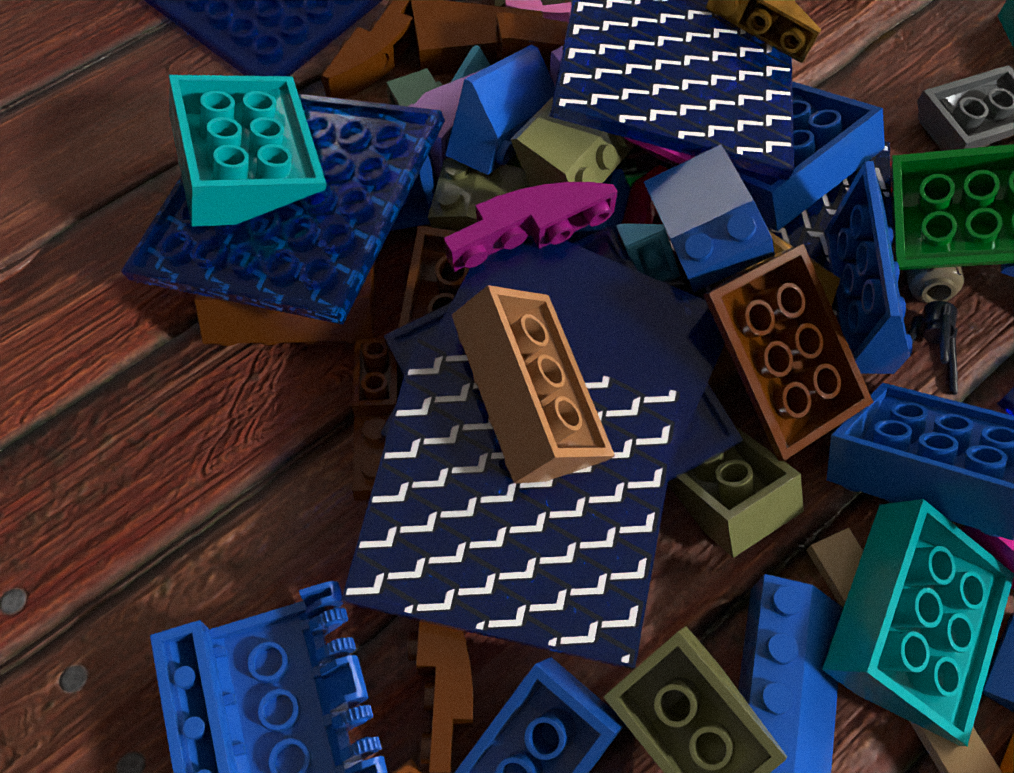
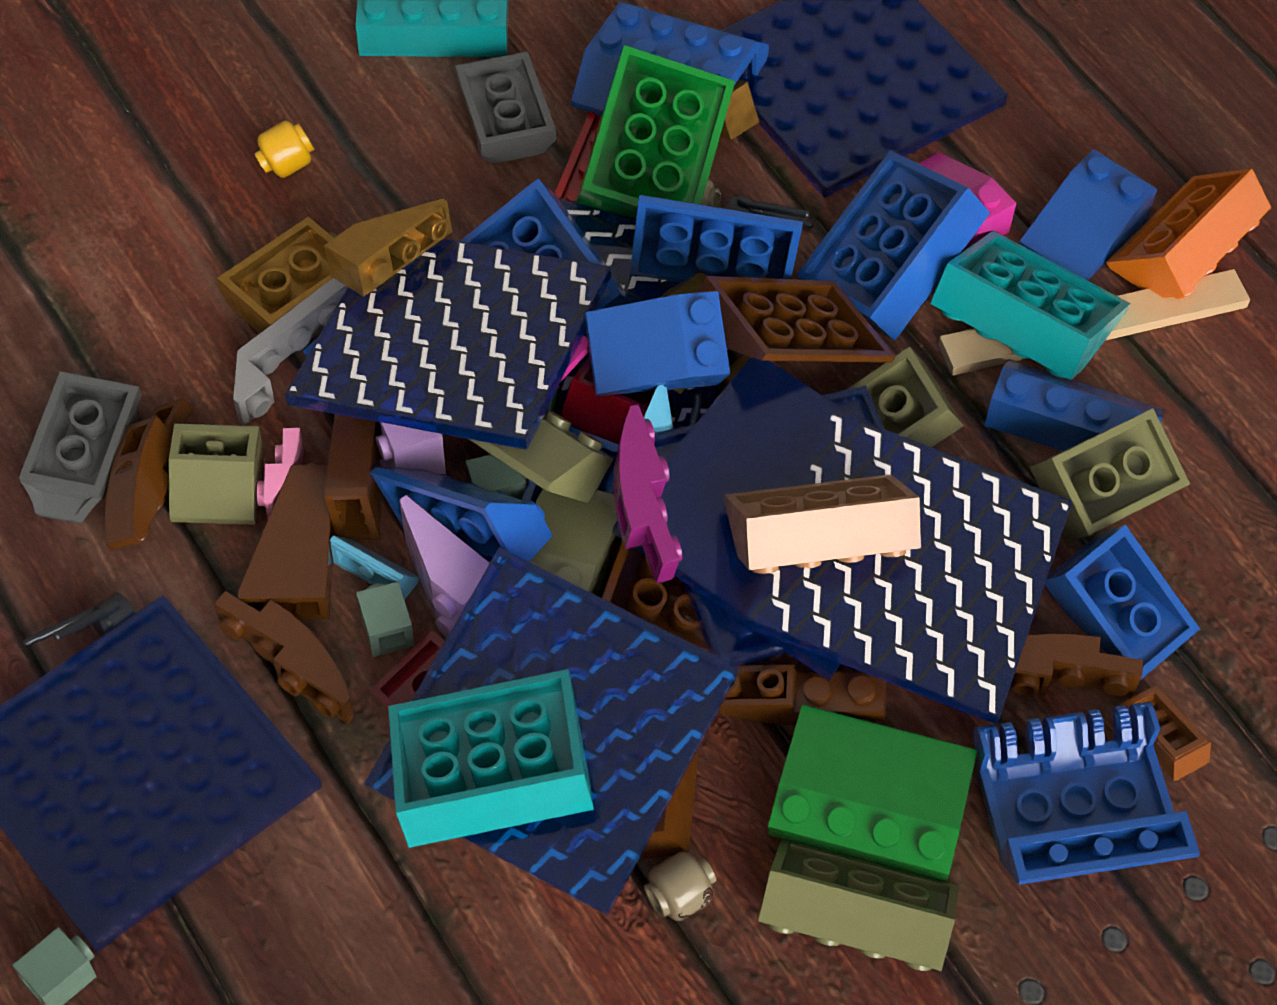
camera: 80 degrees left, 5 degrees down
(155, 498) = (860, 905): none -> olive slope
(169, 340) = (680, 886): none -> dark tan head
(263, 495) = (873, 793): none -> green slope

